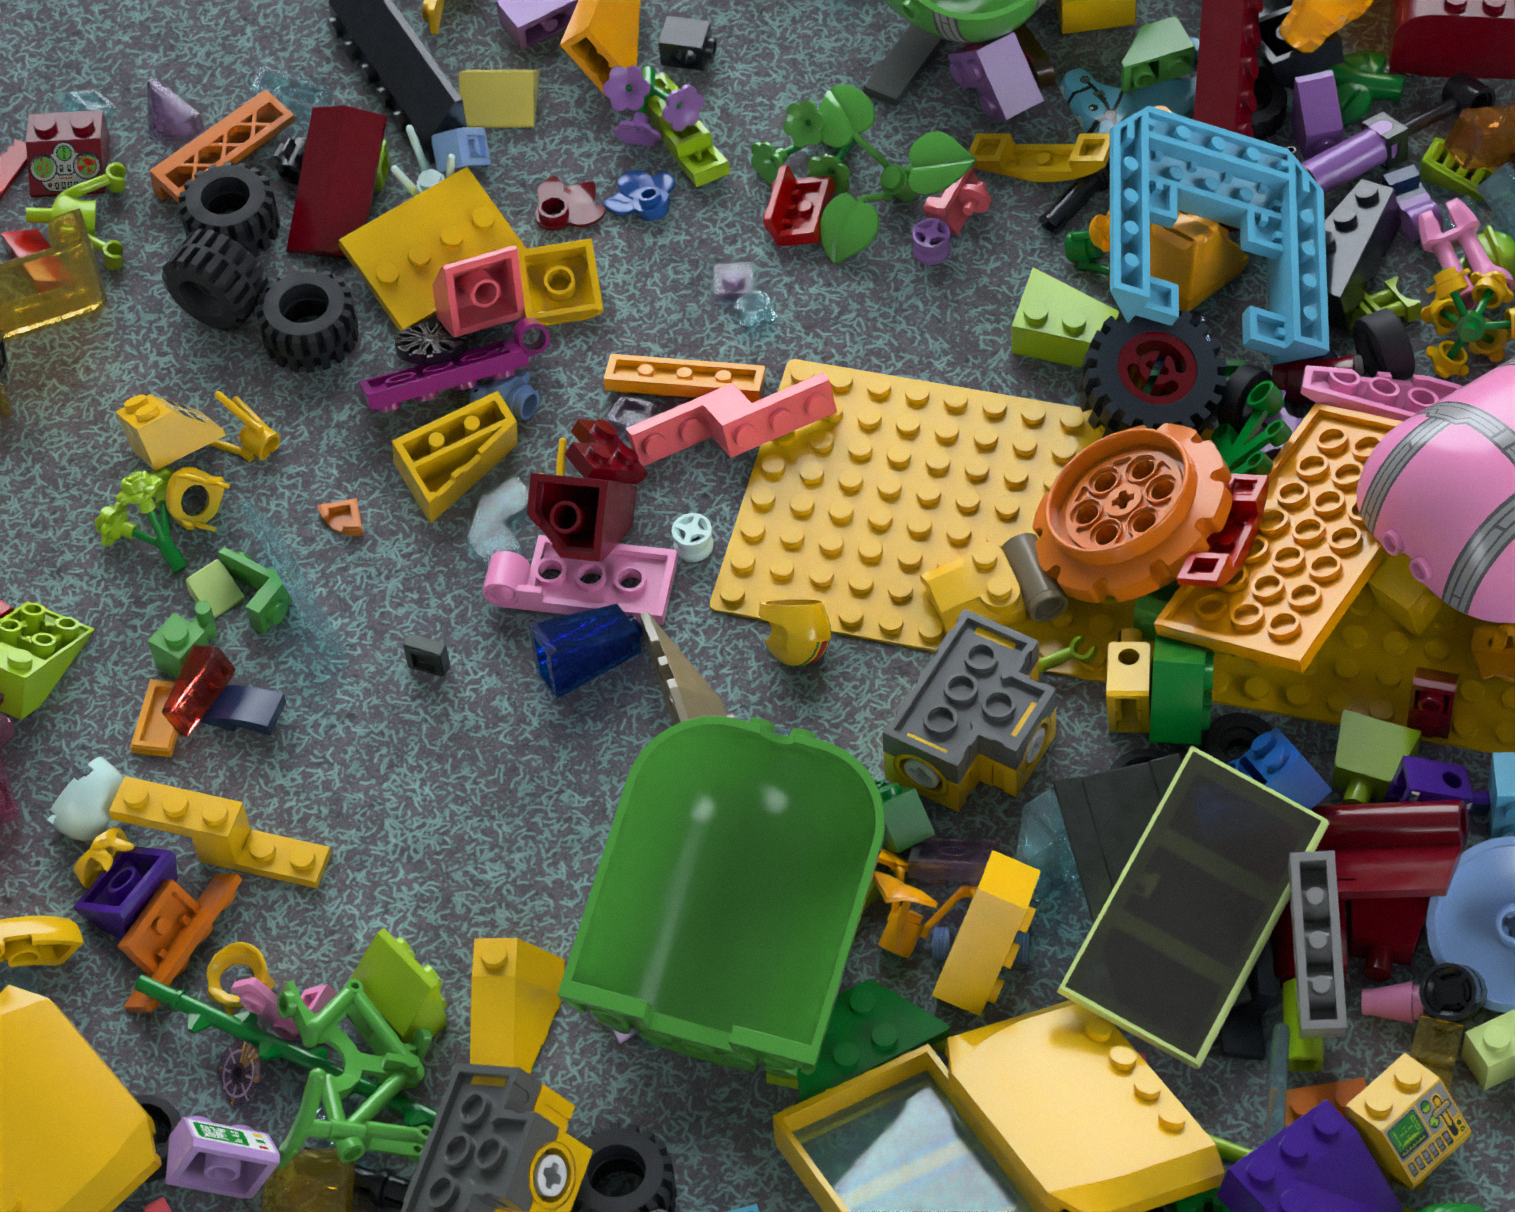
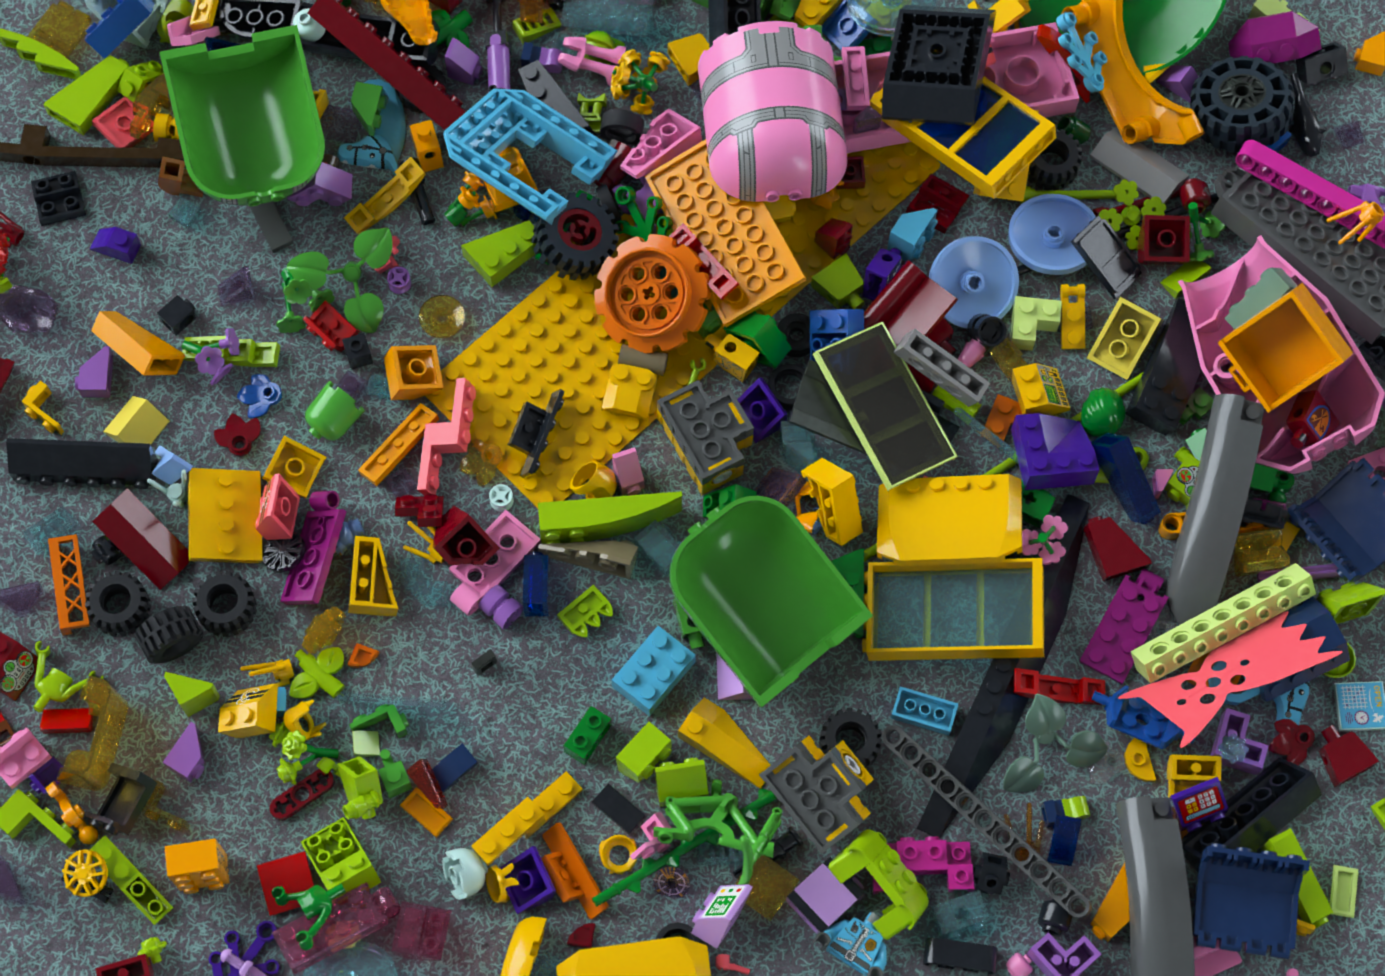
camera: 65 degrees left, 15 degrees up
(69, 403) = (187, 755): none -> medium lavender slope
(87, 549) = (290, 811): none -> dark red beam
(91, 1011) = (582, 936): none -> dark red tile
(137, 608) = (360, 785): none -> lime torso
(145, 351) = (192, 693): none -> lime slope
(211, 458) = (281, 702): none -> medium azure tile
(283, 478) = (318, 673): none -> lime plant
(315, 946) = (618, 809): none -> black tile
(339, 440) = (323, 630): none -> clear yellow gear
(398, 838) = (587, 735): none -> green brick
(408, 907) = (643, 753): none -> lime slope
(518, 611) = (497, 603): none -> medium lavender wheel
(543, 862) = (653, 670): none -> medium azure brick
(591, 732) = (585, 610): none -> lime plate
(669, 274) = (331, 413): none -> bright green cylinder
(732, 484) = (478, 463): none -> clear yellow plate
(740, 657) = (603, 517): none -> lime slope
(780, 84) = (237, 288): none -> clear purple slope
(785, 253) = (357, 351): none -> black brick
(801, 327) = (412, 371): none -> light orange slope
(817, 507) = (532, 430): none -> black bracket
(842, 656) = (628, 472): none -> bright pink slope
(914, 304) = (441, 306): none -> clear yellow dish
(1075, 756) = (762, 409): none -> dark purple slope
(1106, 51) = (340, 124): none -> piece

